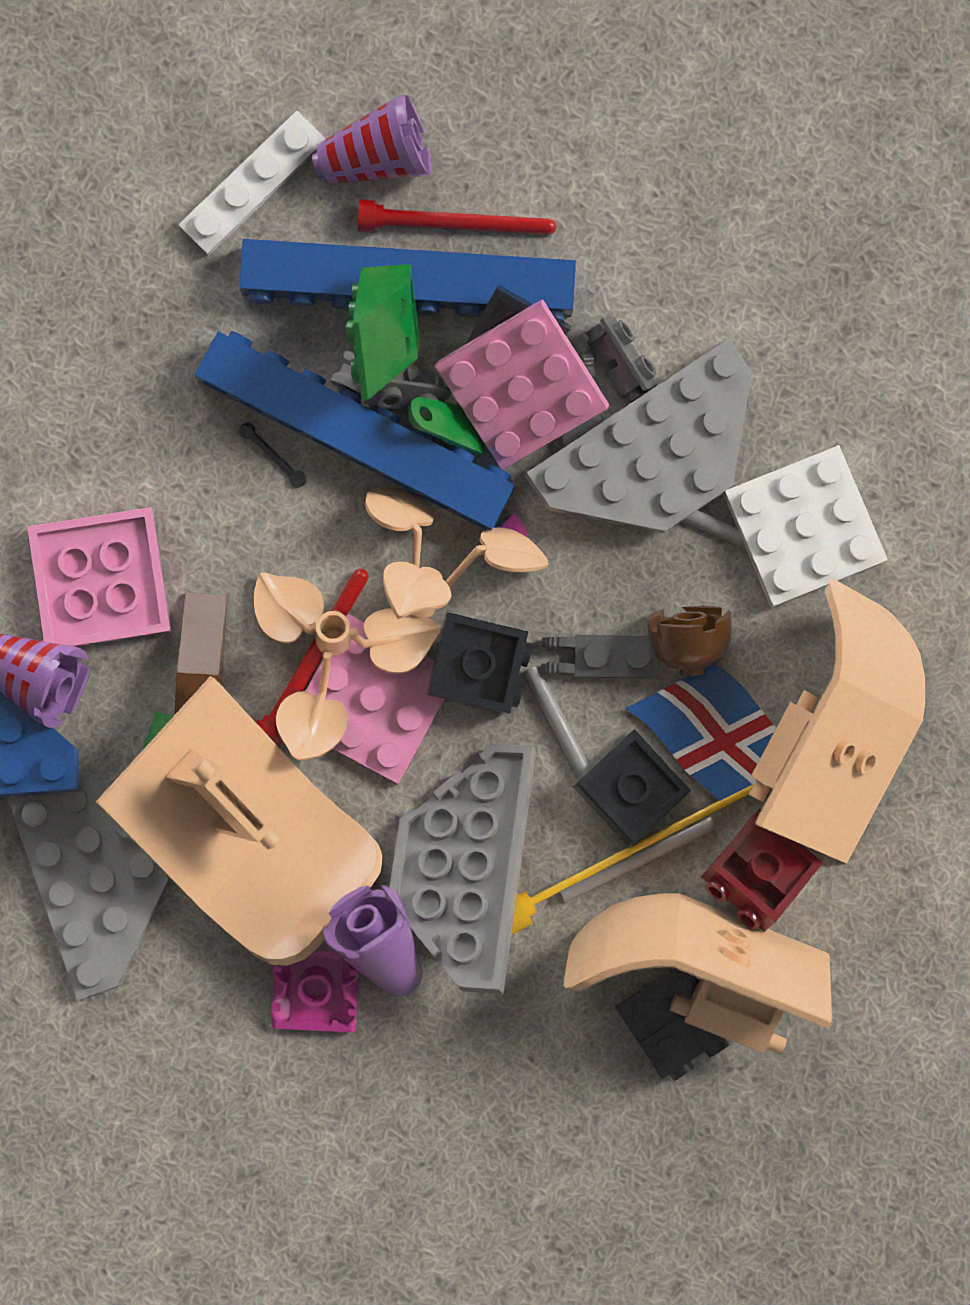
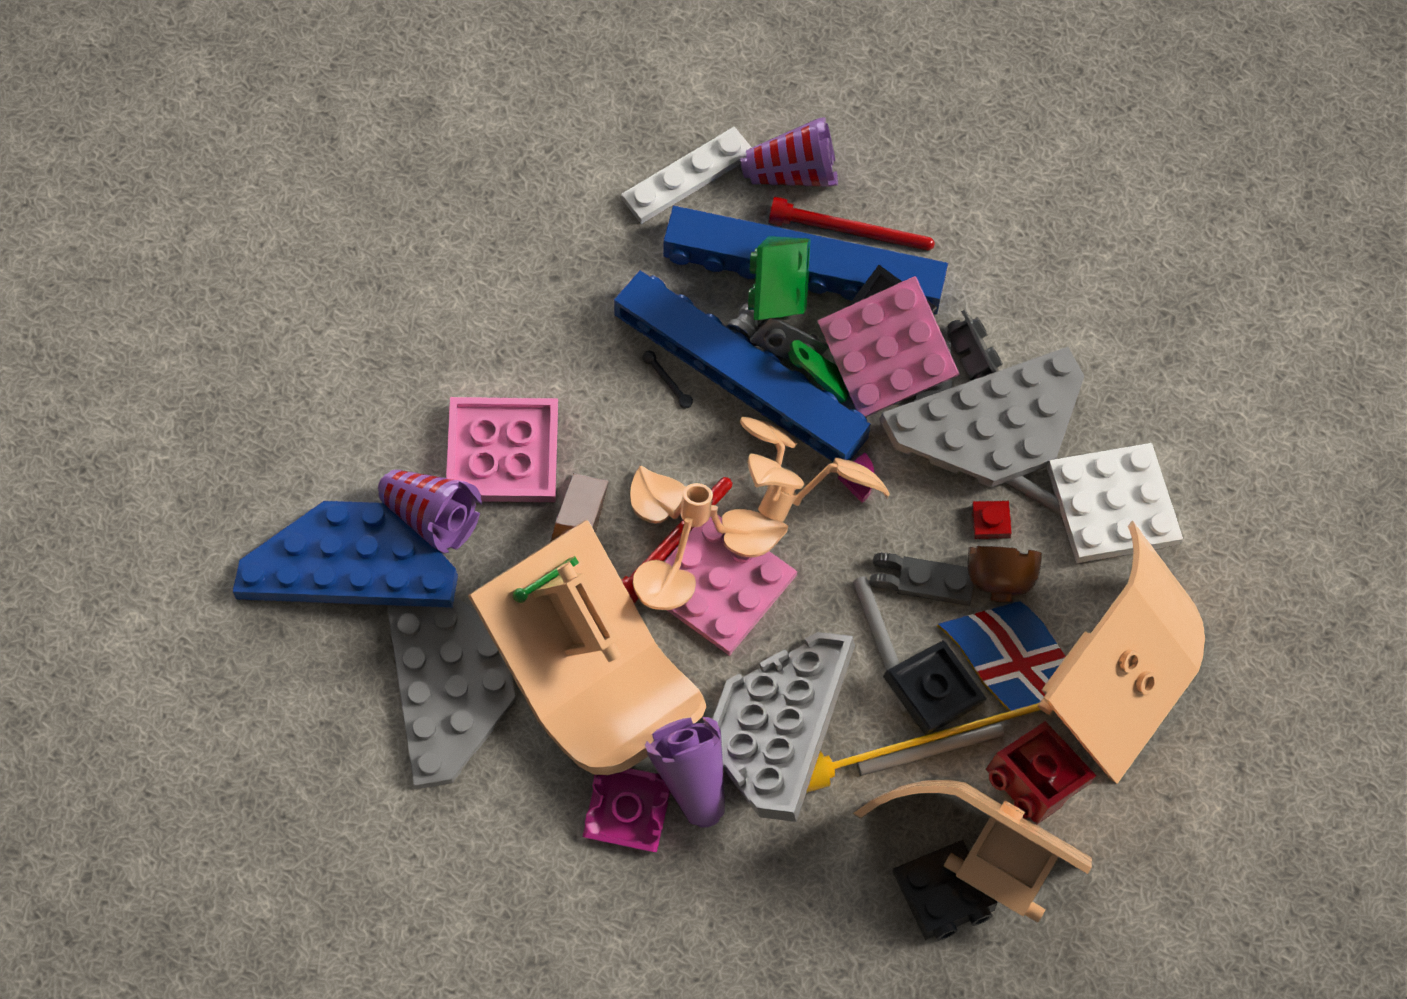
camera: 10 degrees right, 20 degrees down
(155, 786) = (520, 594): none -> green hinge
(479, 664) = (817, 562): black plate -> none
(668, 570) = (991, 519): none -> red plate

